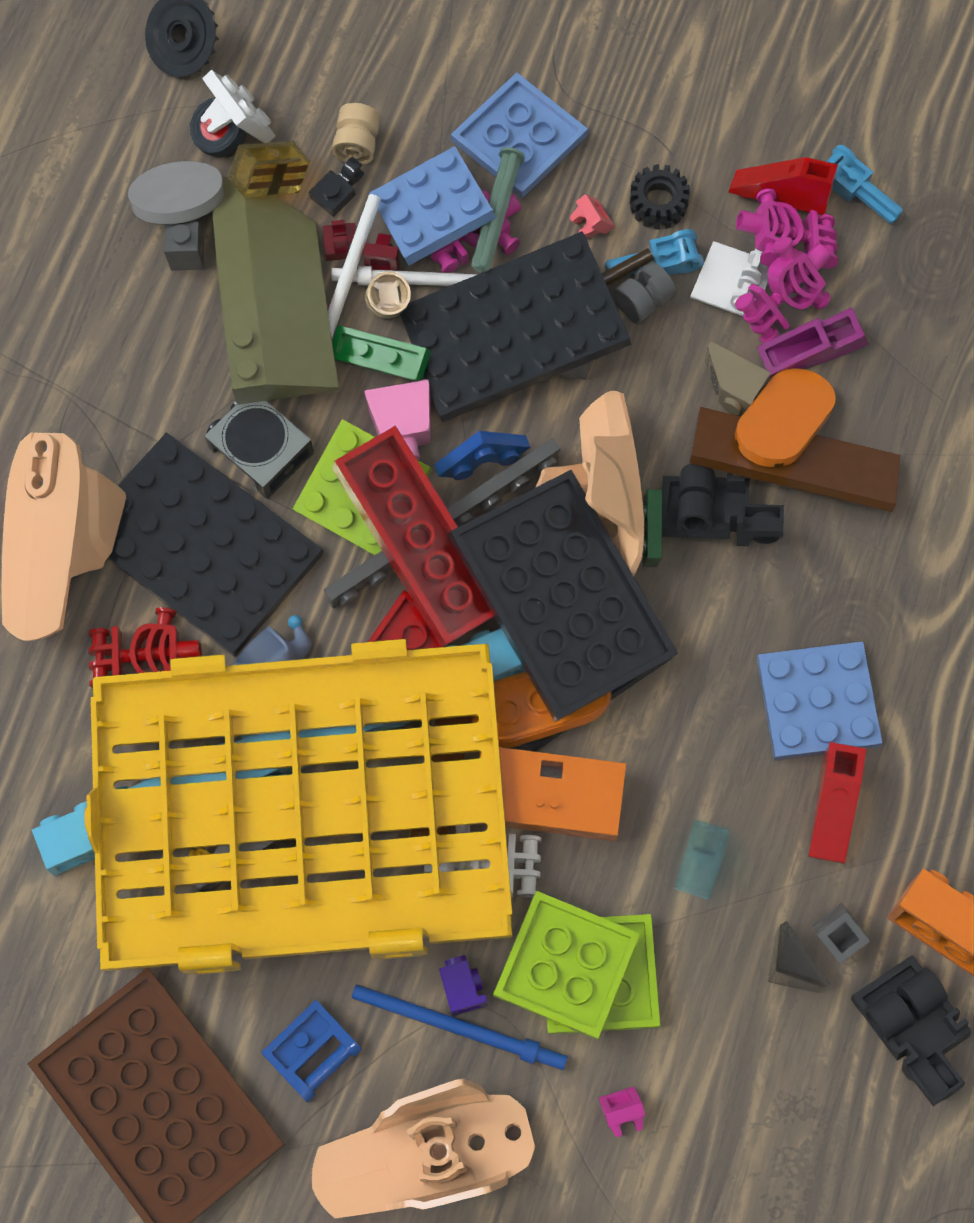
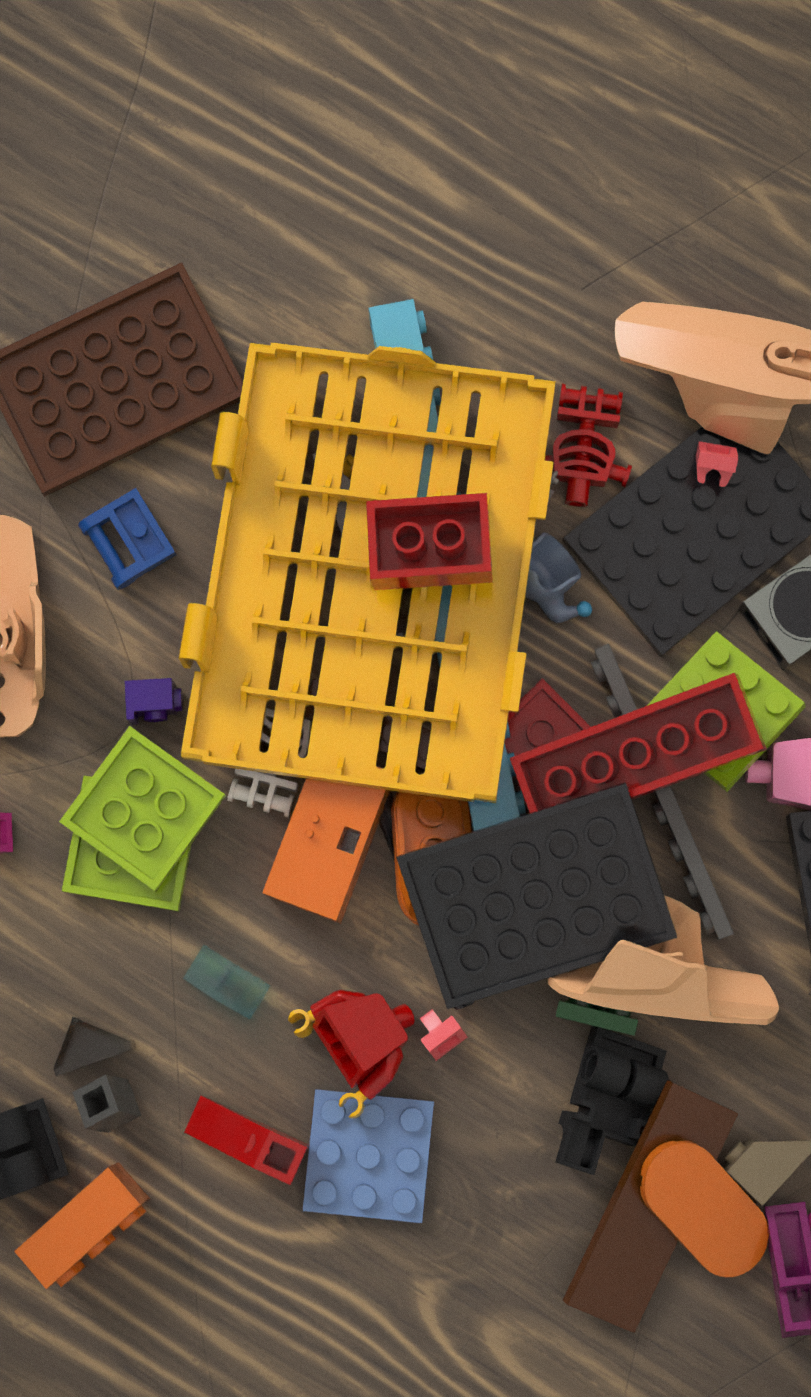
camera: 100 degrees right, 10 degrees up
(137, 533) = (716, 457): none -> coral tile
(267, 743) = (429, 541): none -> red brick
(480, 449) = (732, 851): blue plate -> none
(527, 1050) = (73, 753): blue bar -> none
(698, 661) = (441, 1036): none -> coral tile
(722, 722) = (360, 1037): none -> red torso

